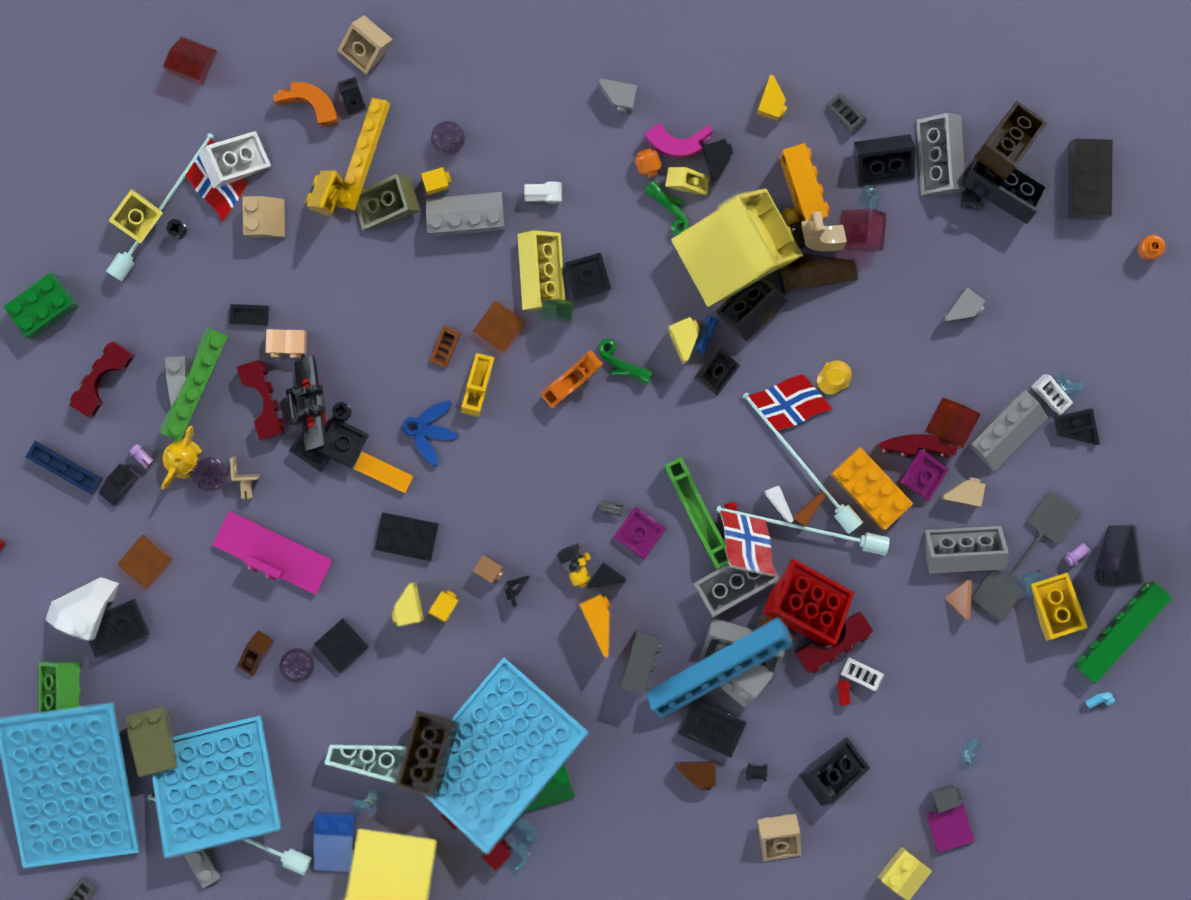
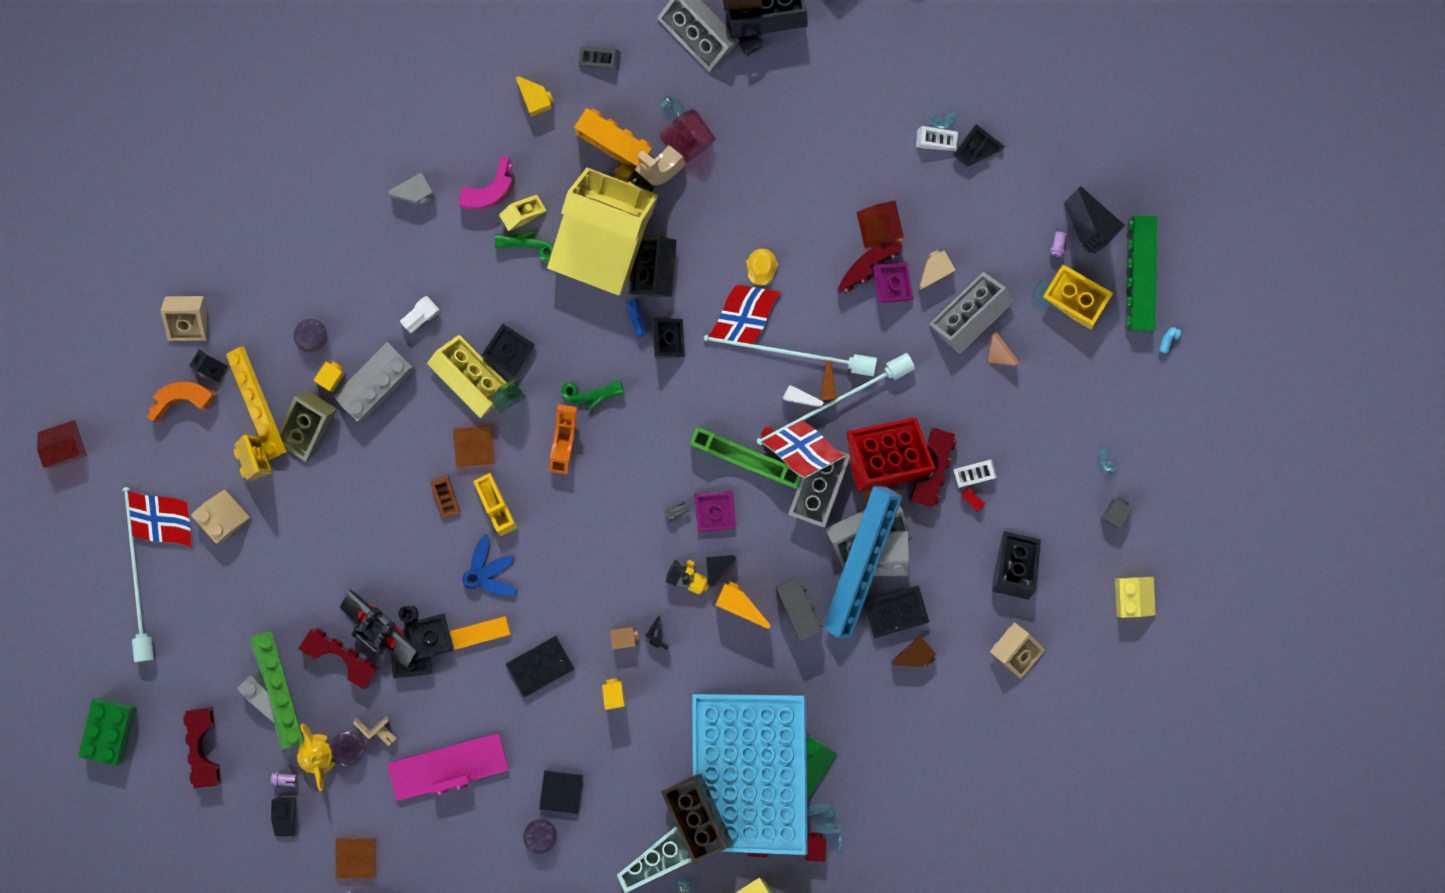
camera: 40 degrees left, 0 degrees up
(63, 467) = (231, 839): dark blue plate -> none
(135, 216) = (120, 600): light yellow slope -> none
(171, 228) = (166, 579): black bush -> none
(233, 159) = (159, 491): white slope -> none
(249, 314) = (273, 600): black tile -> none
(255, 653) = (500, 854): reddish brown slope -> none
(286, 342) = (320, 597): light nougat brick -> none
(408, 607) = (586, 718): light yellow slope -> none
(648, 162) = (480, 223): orange head -> none
(684, 337) = (621, 333): light yellow slope -> none
(717, 158) = (530, 175): black slope -> none
(756, 772) = (958, 616): black bush -> none
(815, 272) = (679, 198): dark brown wedge -> none
(871, 488) = (861, 327): light orange brick -> none
(884, 160) = (658, 69): black slope -> none
(950, 828) = (1139, 533): magenta tile -> none
(965, 307) = (815, 128): light grey slope -> none
(999, 592) = (1025, 323): dark grey hinge -> none
(1008, 430) = (927, 194): light grey slope -> none

